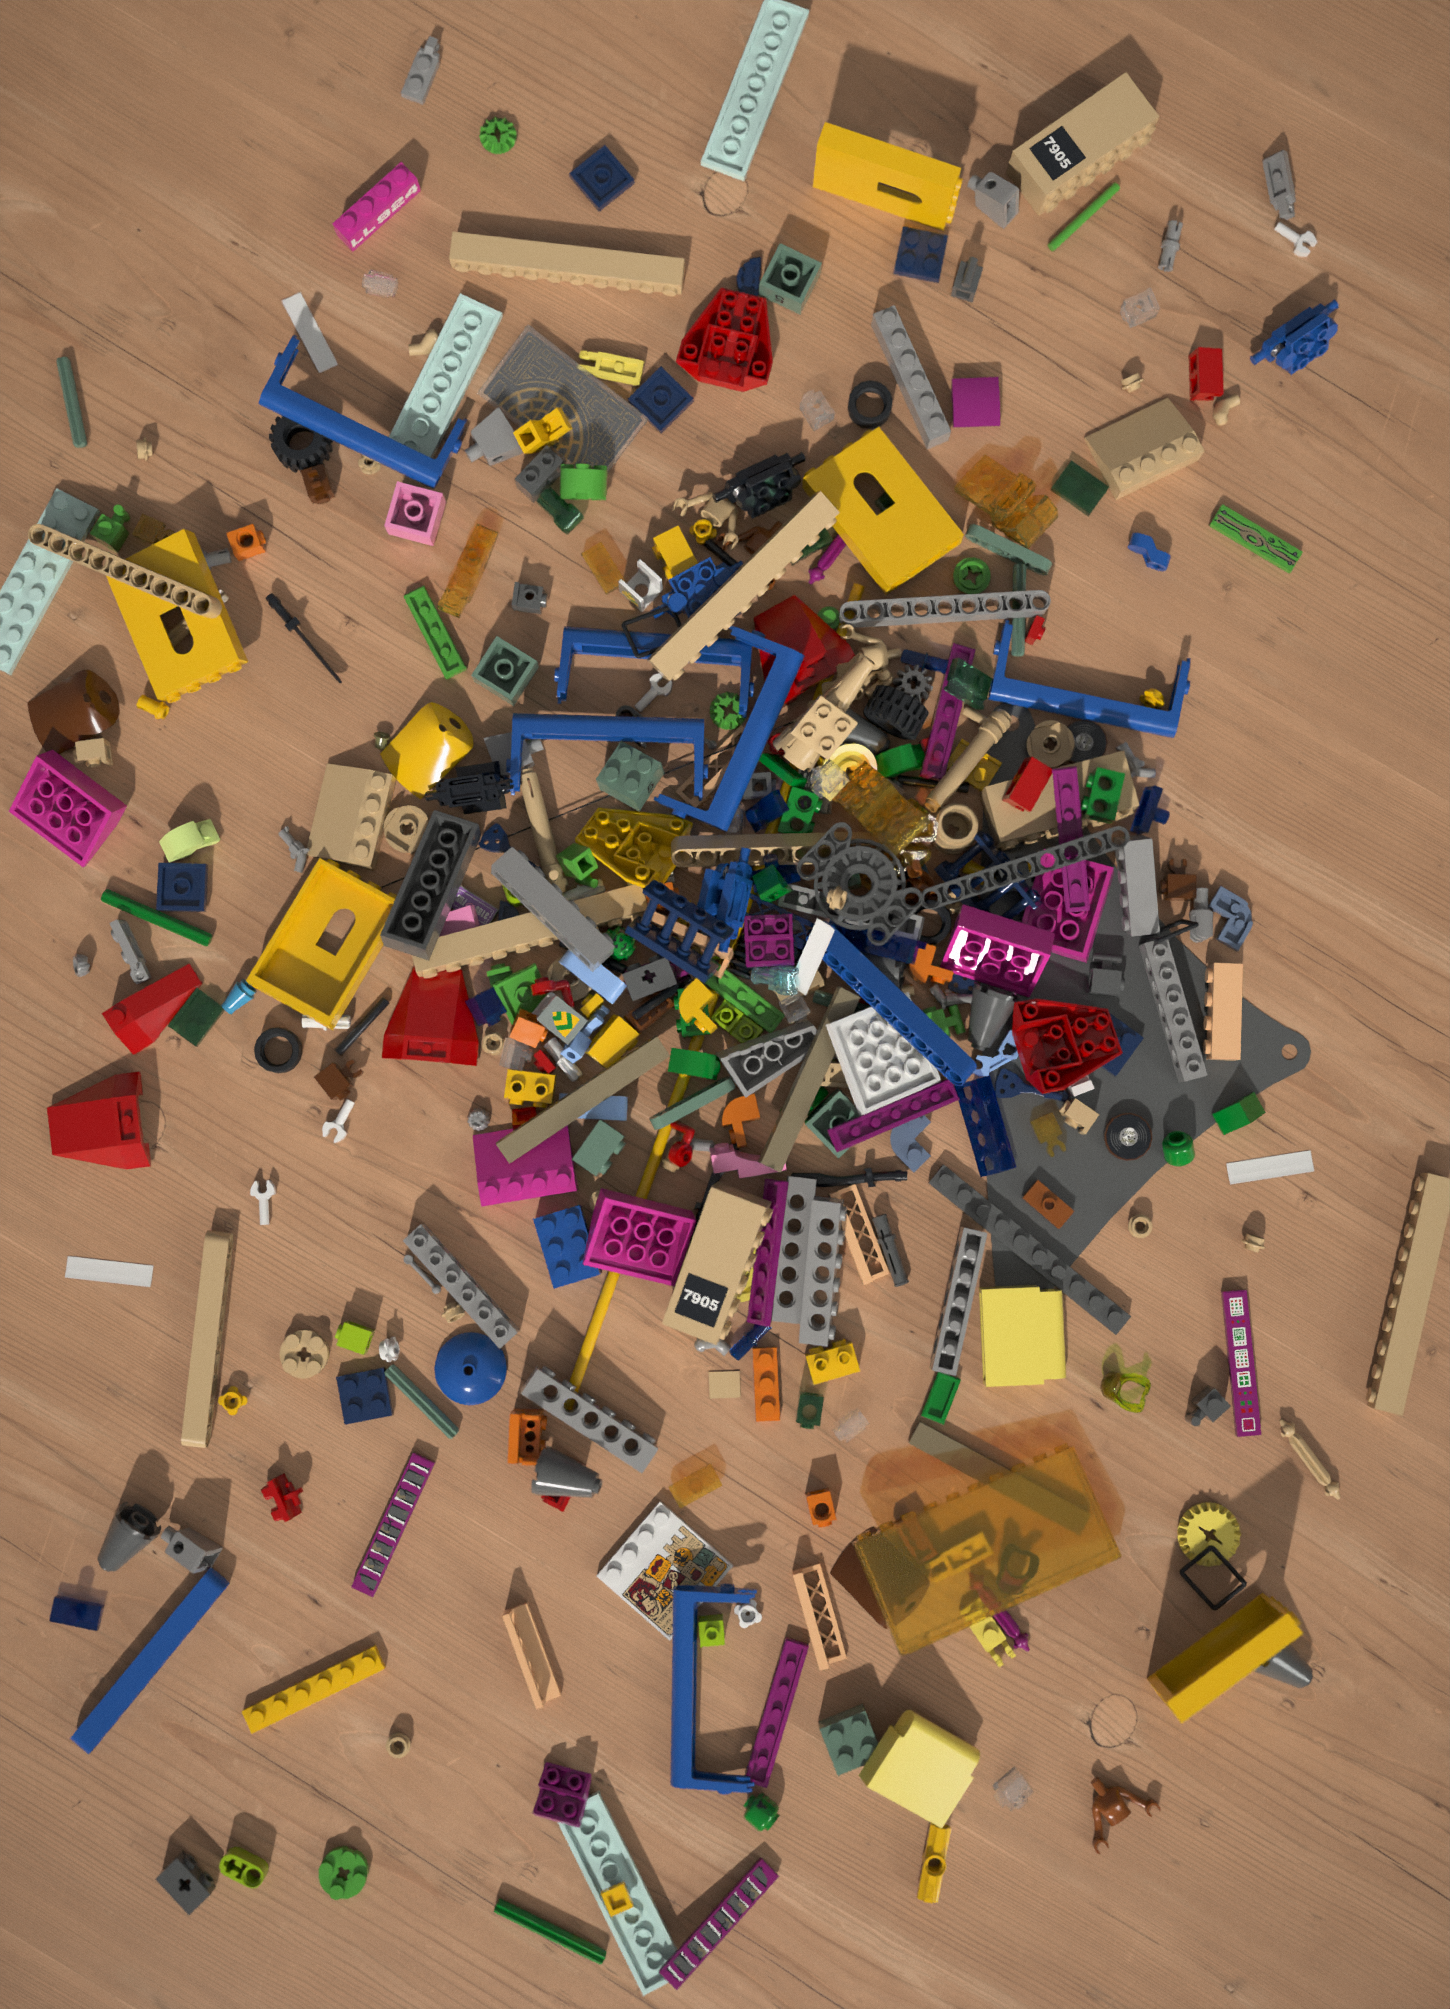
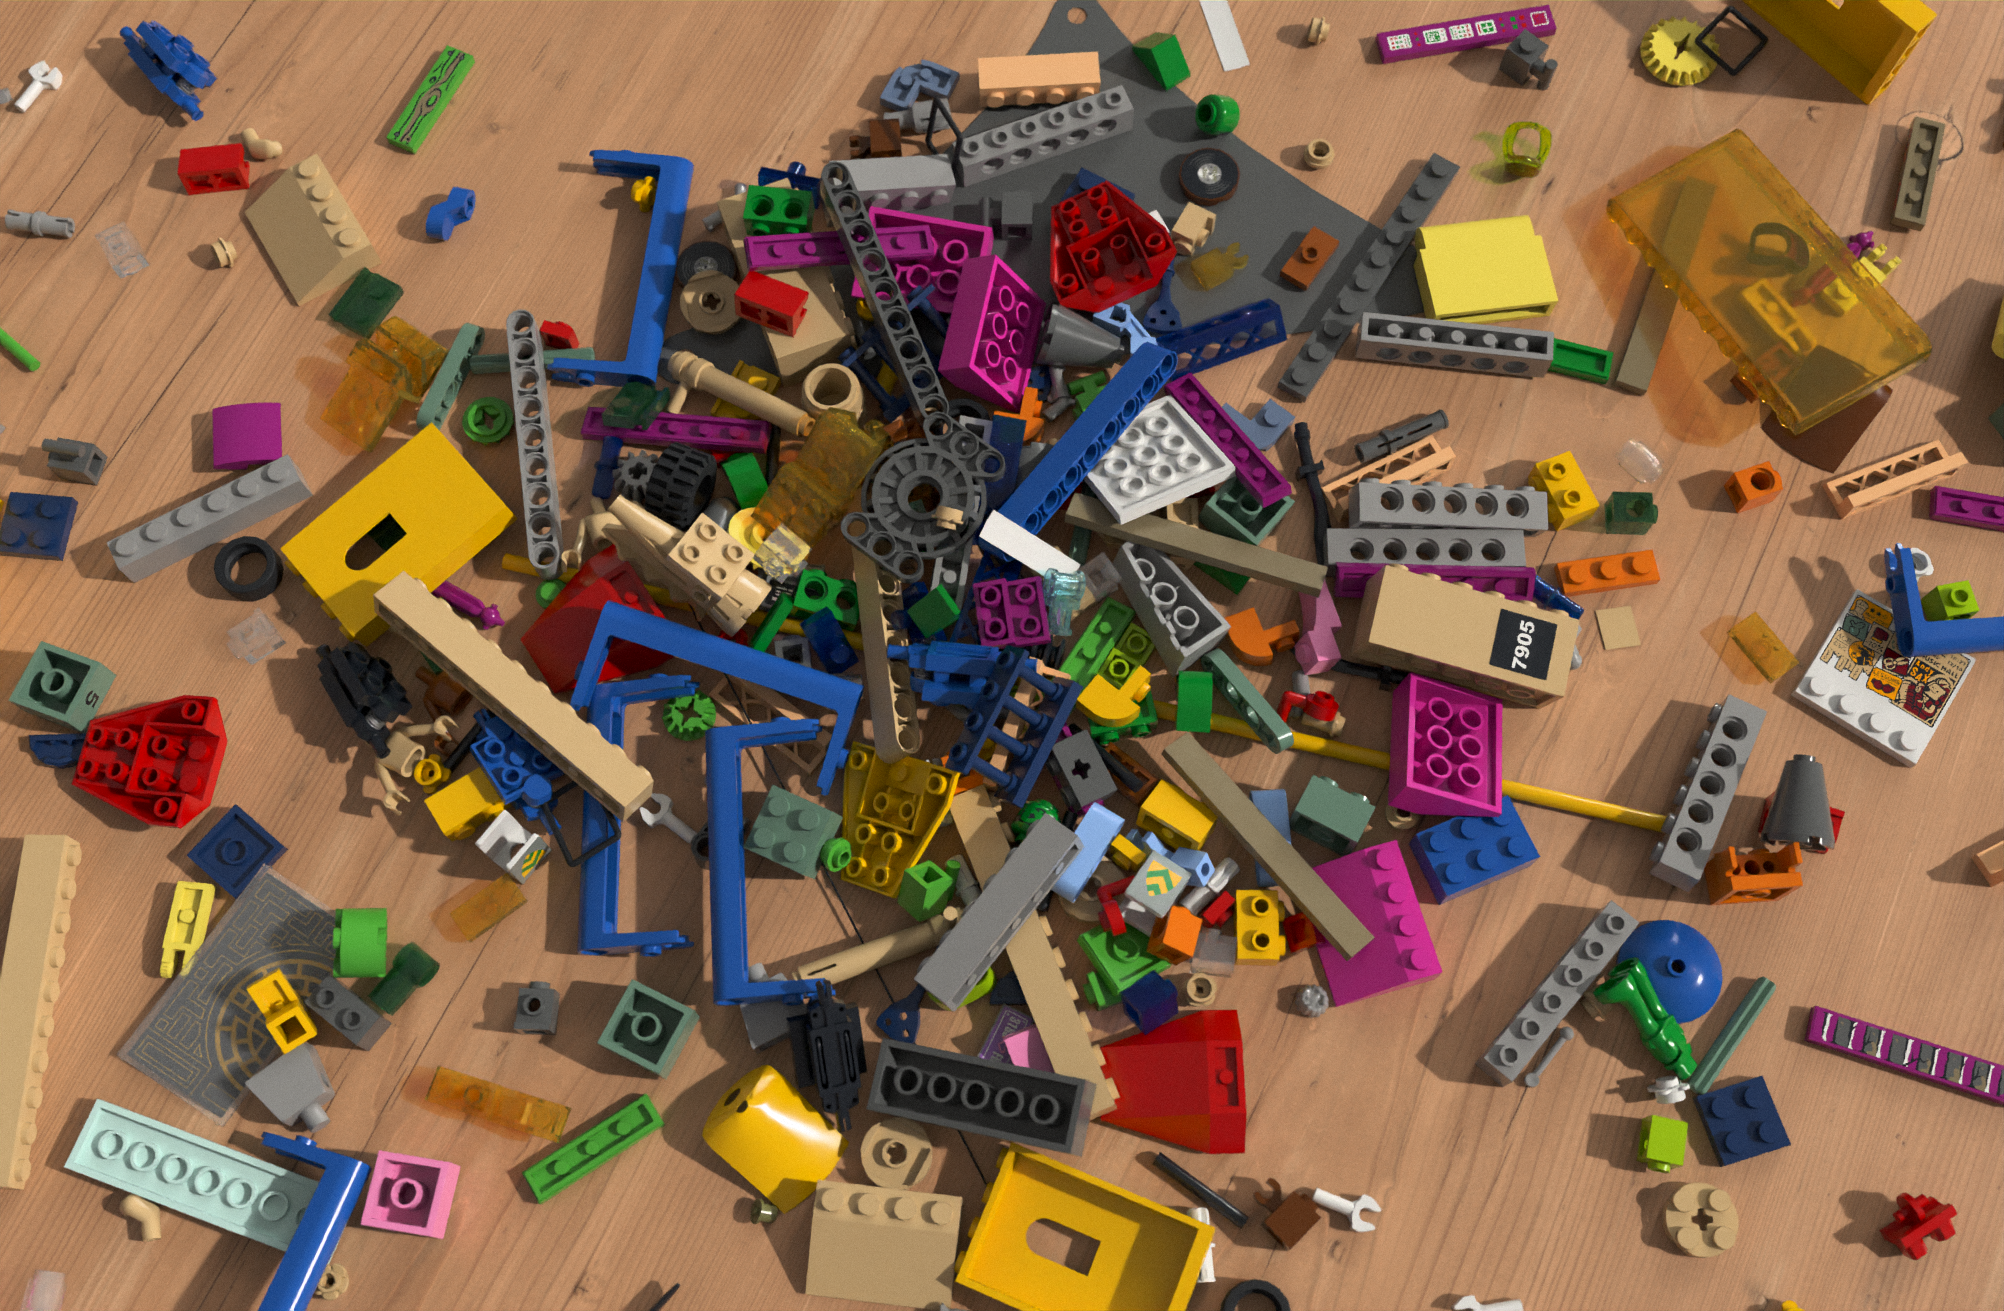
camera: 90 degrees left, 15 degrees down
(424, 1349) = (1657, 1028): none -> green piece
(612, 804) = (836, 854): none -> bright green plate
(1076, 1700) = (1917, 173): none -> dark tan plate

